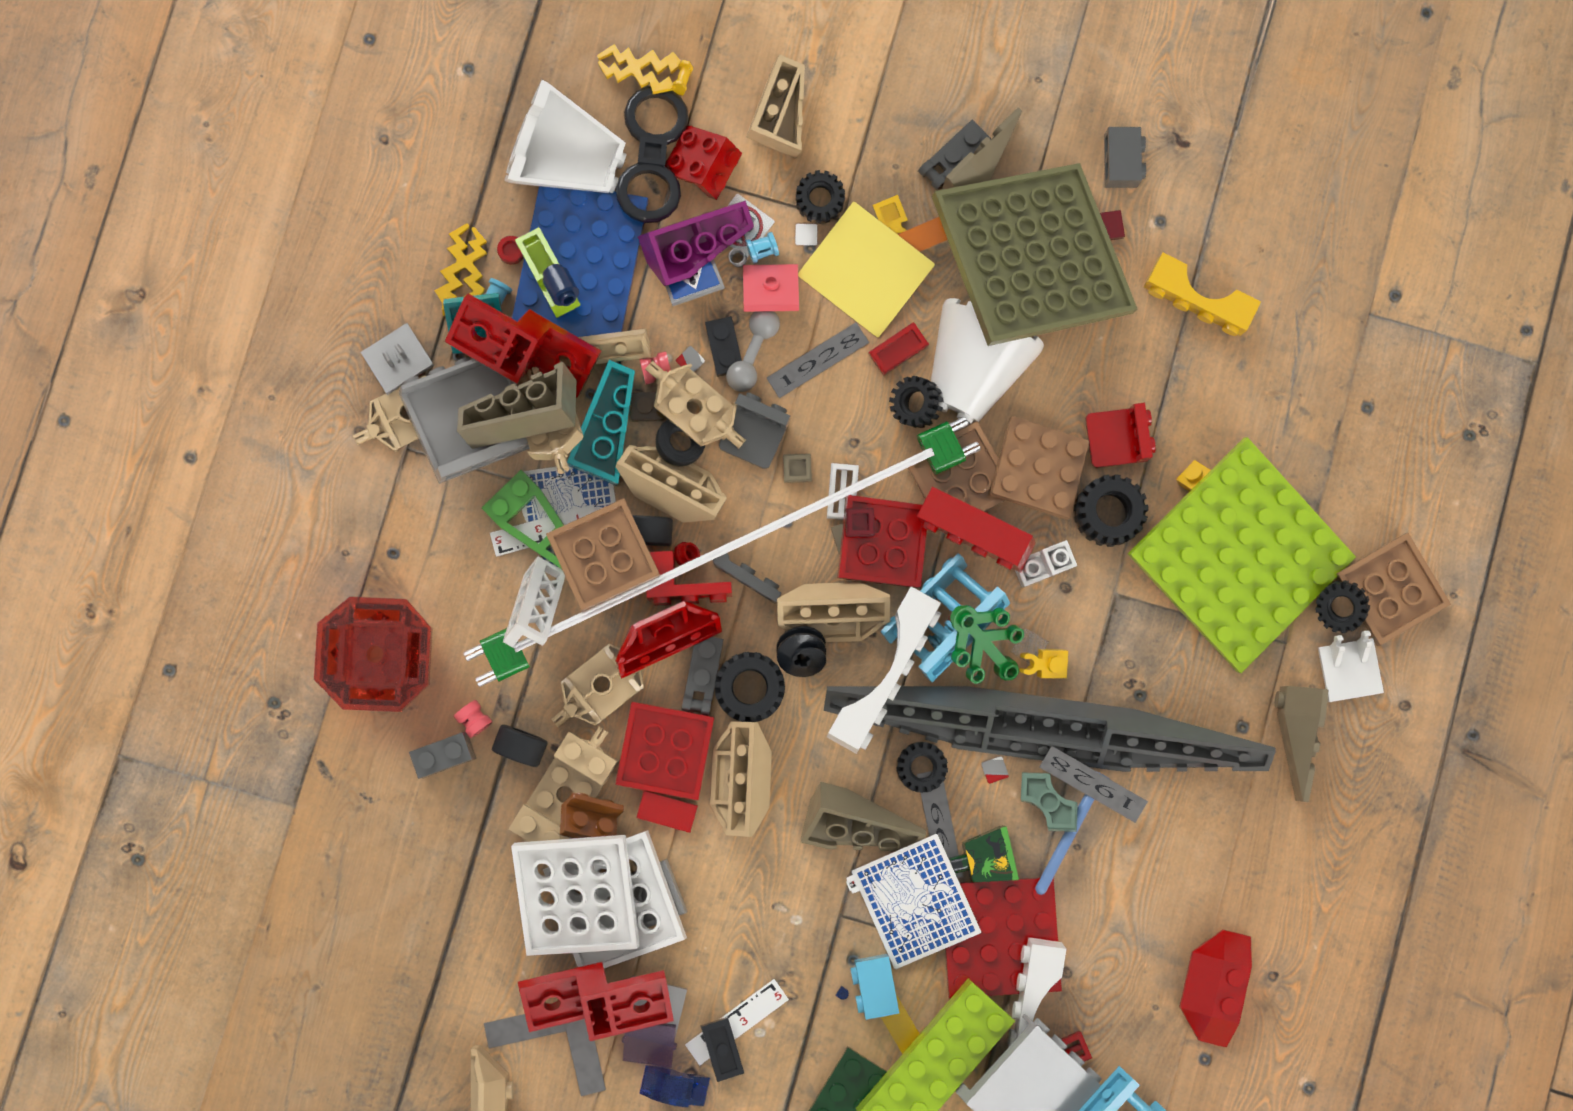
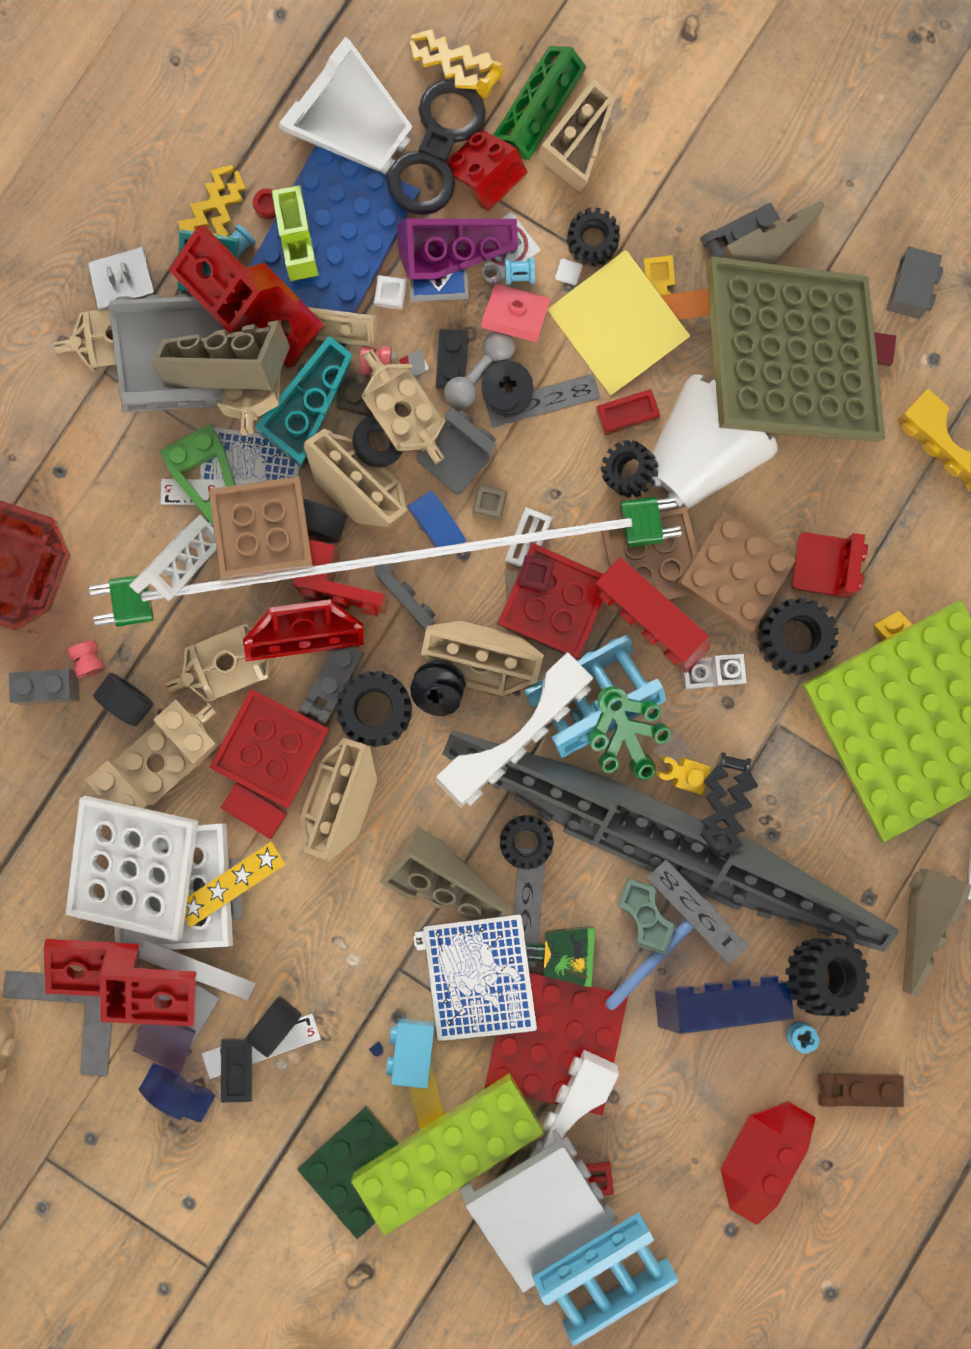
camera: 25 degrees right, 0 degrees up
(560, 285) = (301, 245): dark blue brick -> none
(589, 817) = (171, 792): dark orange bracket -> none
(649, 300) = (390, 292): none -> white tile
(671, 882) = (232, 883): none -> yellow sticker
(673, 971) = (204, 973): none -> white sticker
(686, 552) = (350, 552): red plate -> none
(738, 83) = (544, 101): none -> green fence
(745, 1000) = (273, 1027): none -> black tyre
(754, 500) = (435, 521): none -> blue slope
(777, 371) = (519, 381): none -> black piece
(995, 770) = (601, 867): light grey sticker -> none
(1093, 689) = (726, 814): none -> black piece
(1140, 860) = (723, 1005): none -> clear blue wedge
(1222, 876) = (802, 1046): none -> medium azure bush
(1242, 805) = (846, 973): none -> black tyre
(1284, 899) = (861, 1090): none -> reddish brown plate

